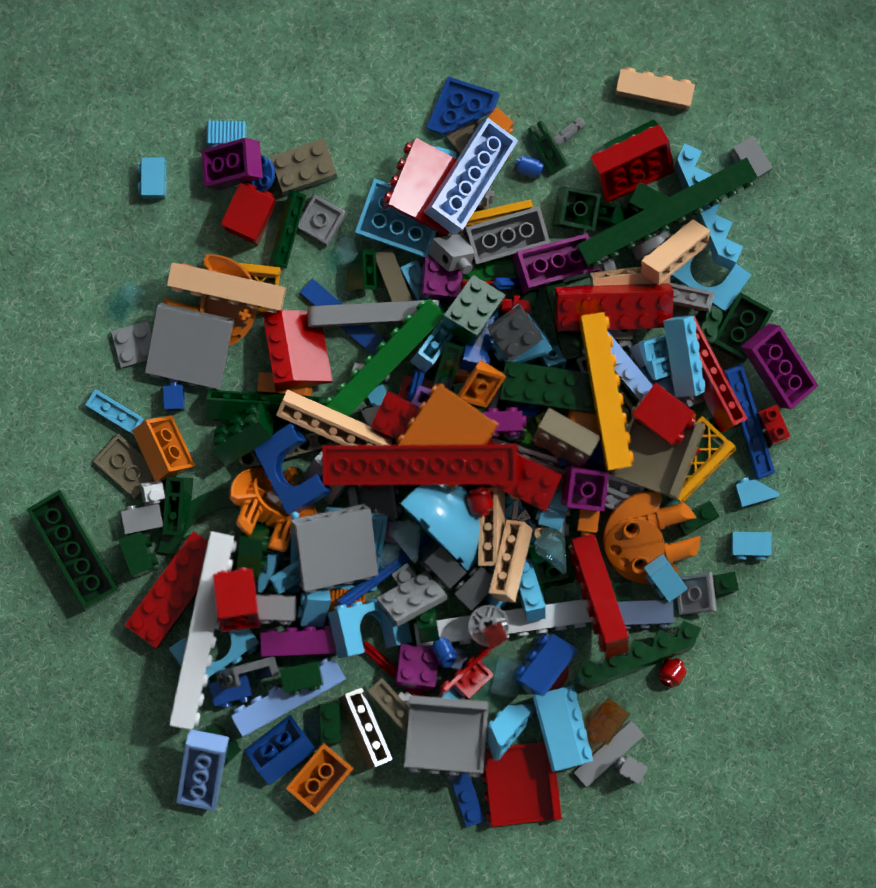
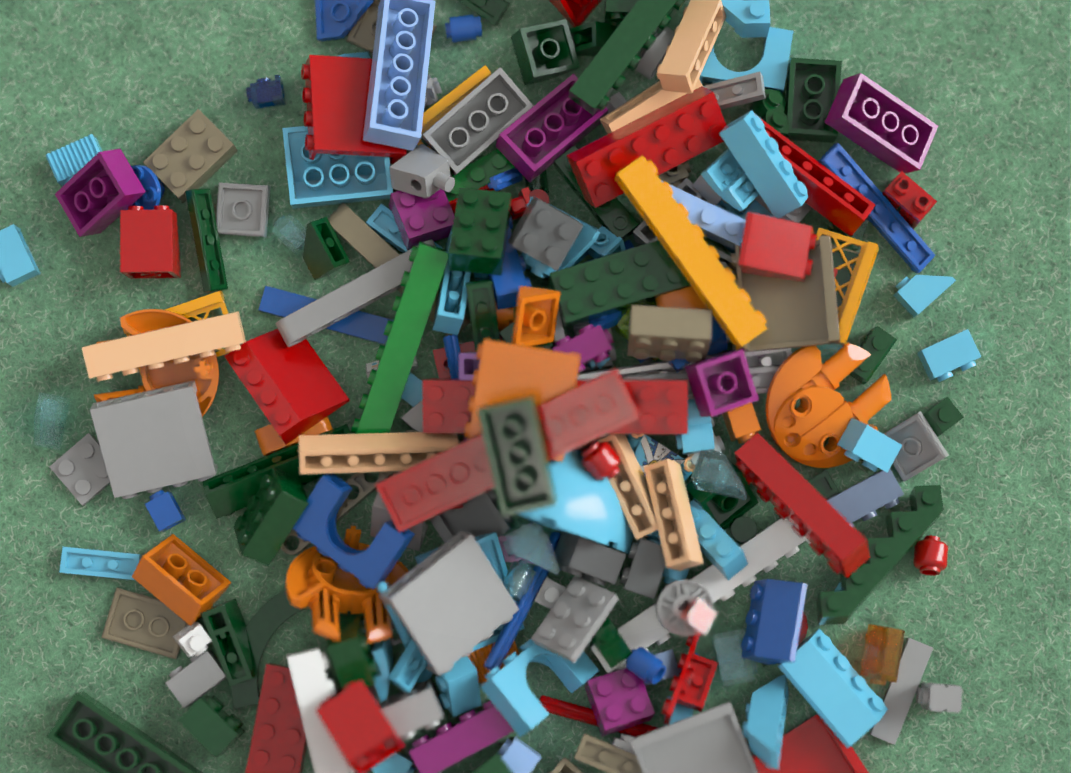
camera: 25 degrees left, 0 degrees up
(375, 148) = (266, 92): none -> clear blue brick
(425, 470) = (517, 455): none -> brick

